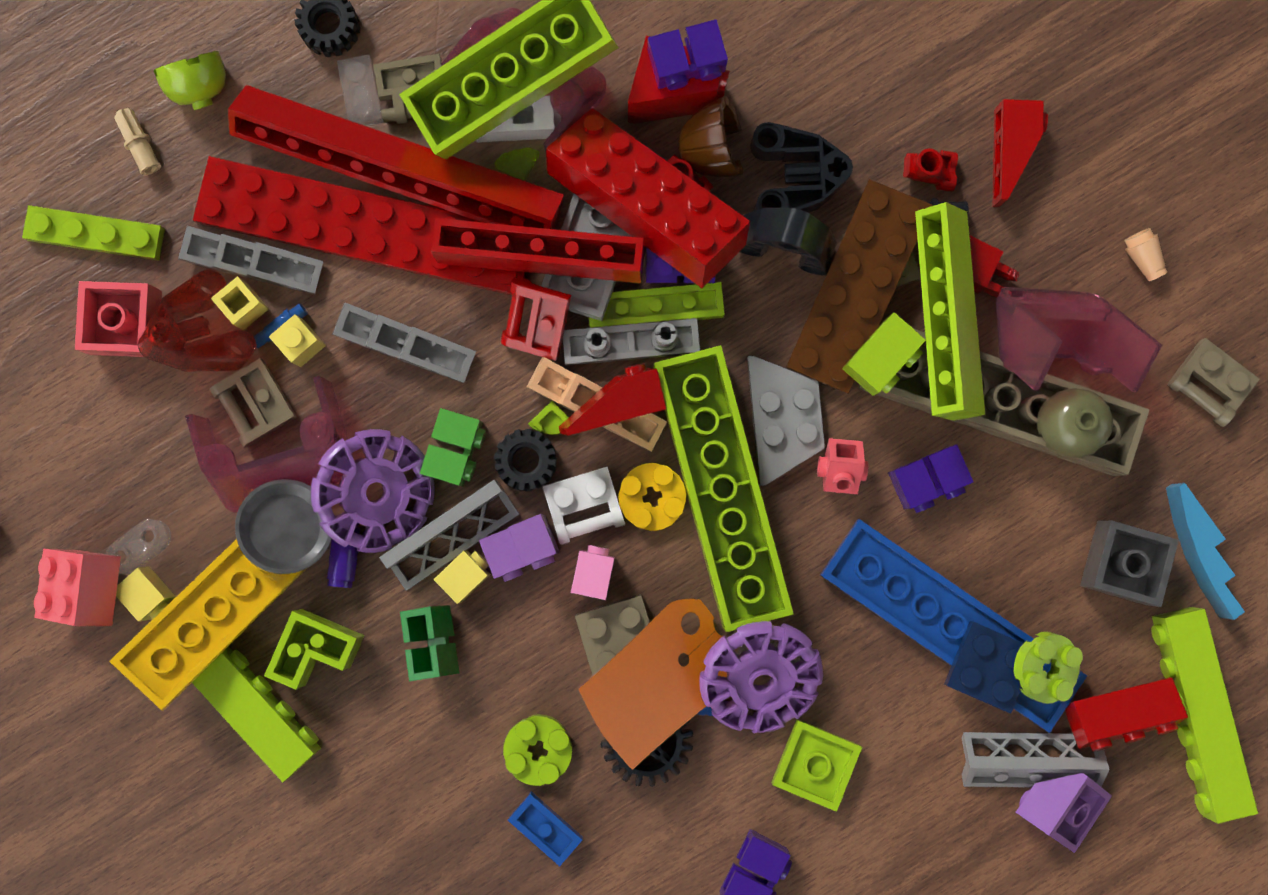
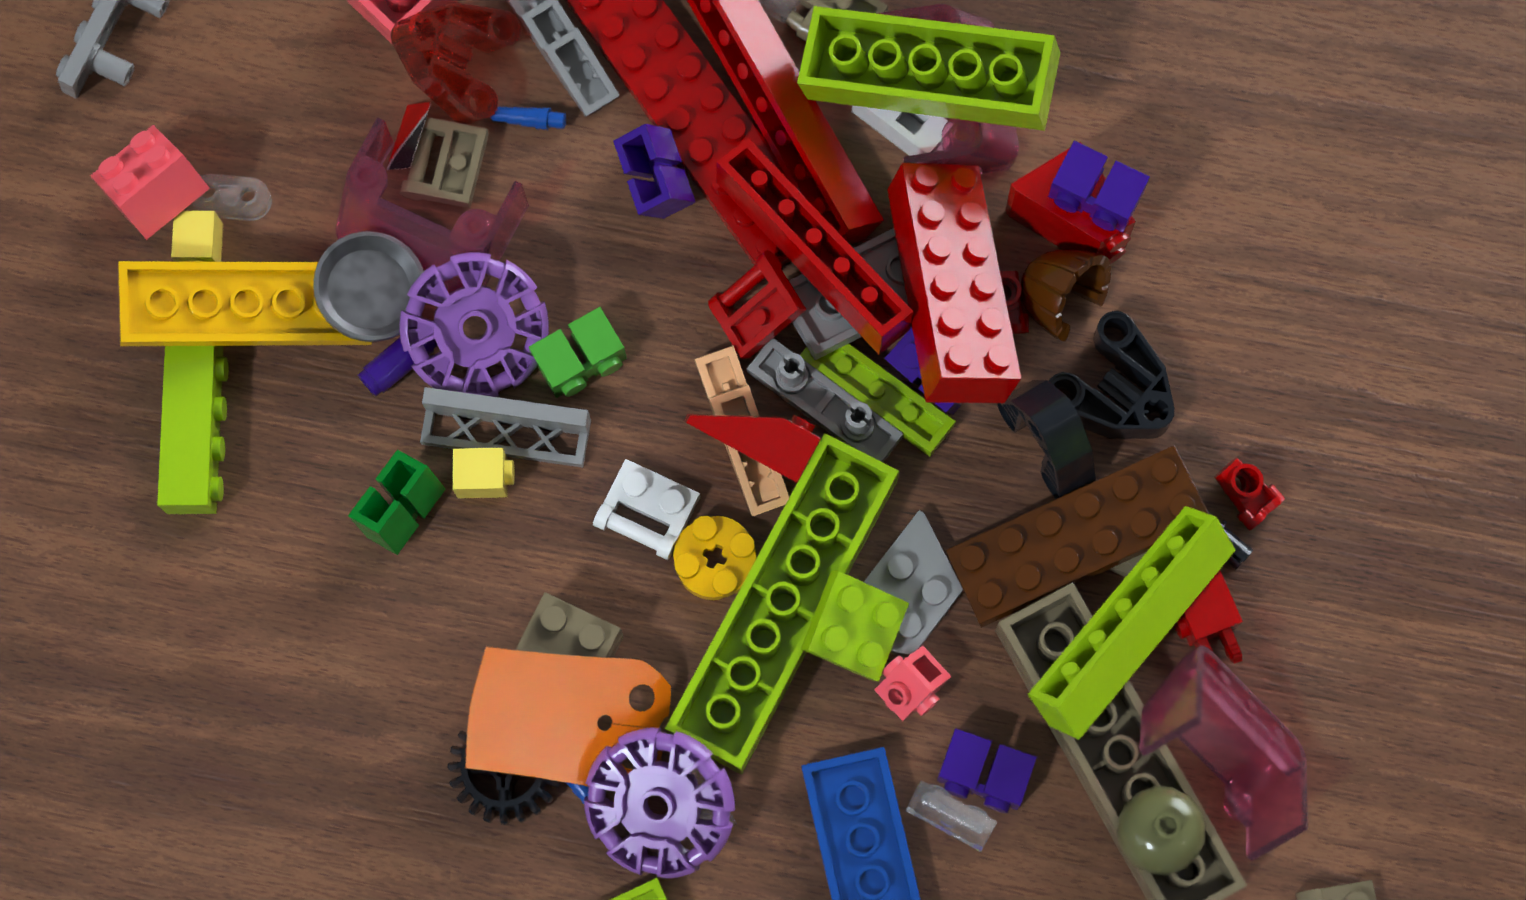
camera: 50 degrees right, 10 degrees down
(214, 406) = (408, 136): none -> sticker
(240, 303) = (513, 67): light yellow brick -> none
(297, 340) = (532, 142): light yellow brick -> none
(308, 640) = (295, 404): lime brick -> none
(382, 279) = (653, 153): none -> dark purple piece
(404, 342) = (622, 226): light grey slope -> none
(511, 445) = (626, 399): black tyre -> none
(518, 162) = (871, 160): clear neon green tile -> none
(520, 546) = (556, 491): medium lavender brick -> none
(521, 761) = (377, 681): lime plate -> none
(545, 828) = (340, 763): blue plate -> none
(549, 420) = (684, 403): lime tile -> none
(593, 572) = (597, 570): bright pink piece -> none
(780, 464) = (855, 625): none -> lime plate
(884, 355) = (1037, 608): lime brick -> none
(946, 520) = (951, 816): none -> clear plate
(1016, 135) = (1352, 536): red slope -> none
(1146, 253) = (1385, 750): light nougat cone -> none

